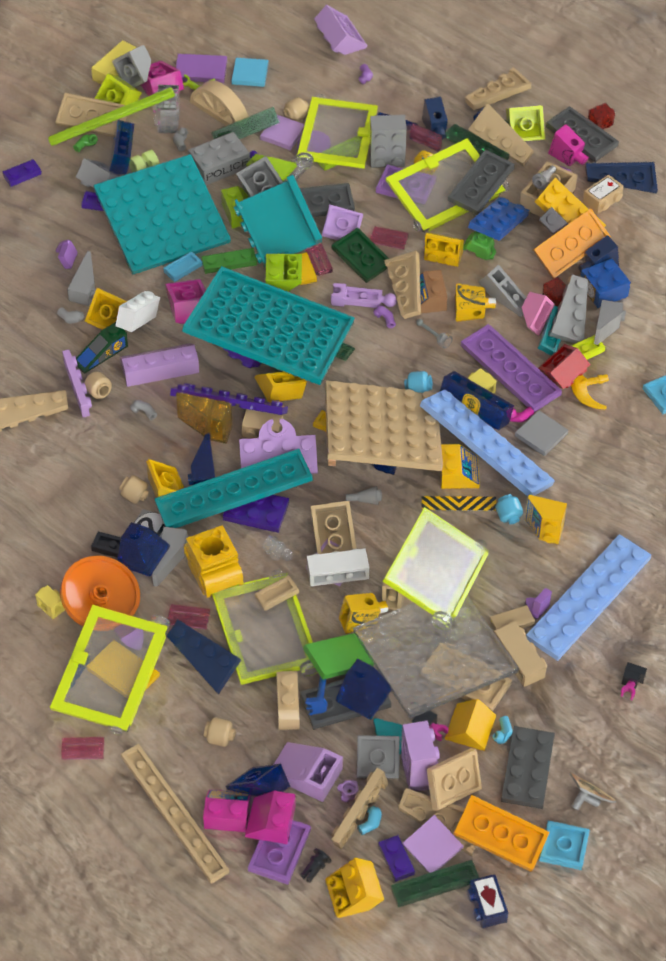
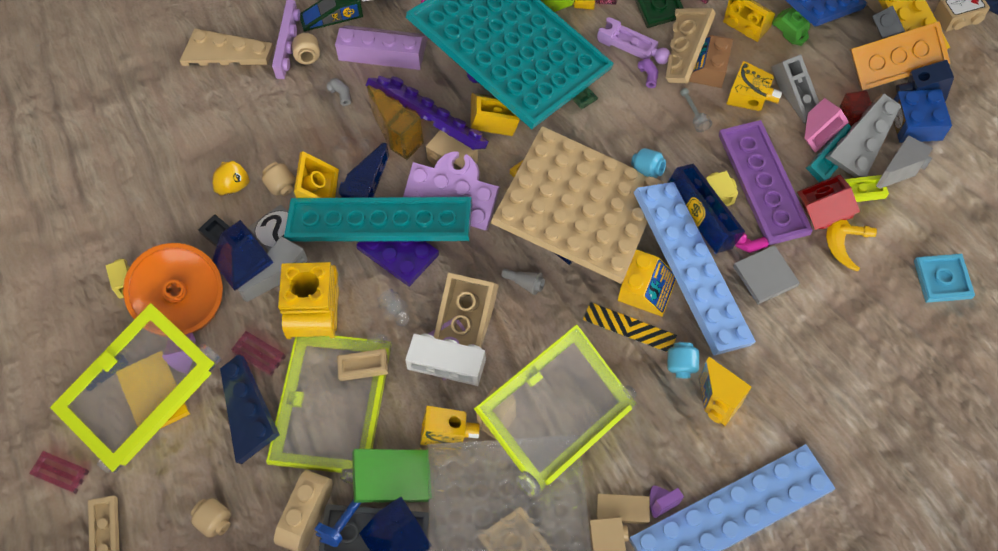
camera: 25 degrees right, 10 degrees up
(93, 501) = (229, 178): none -> yellow piece

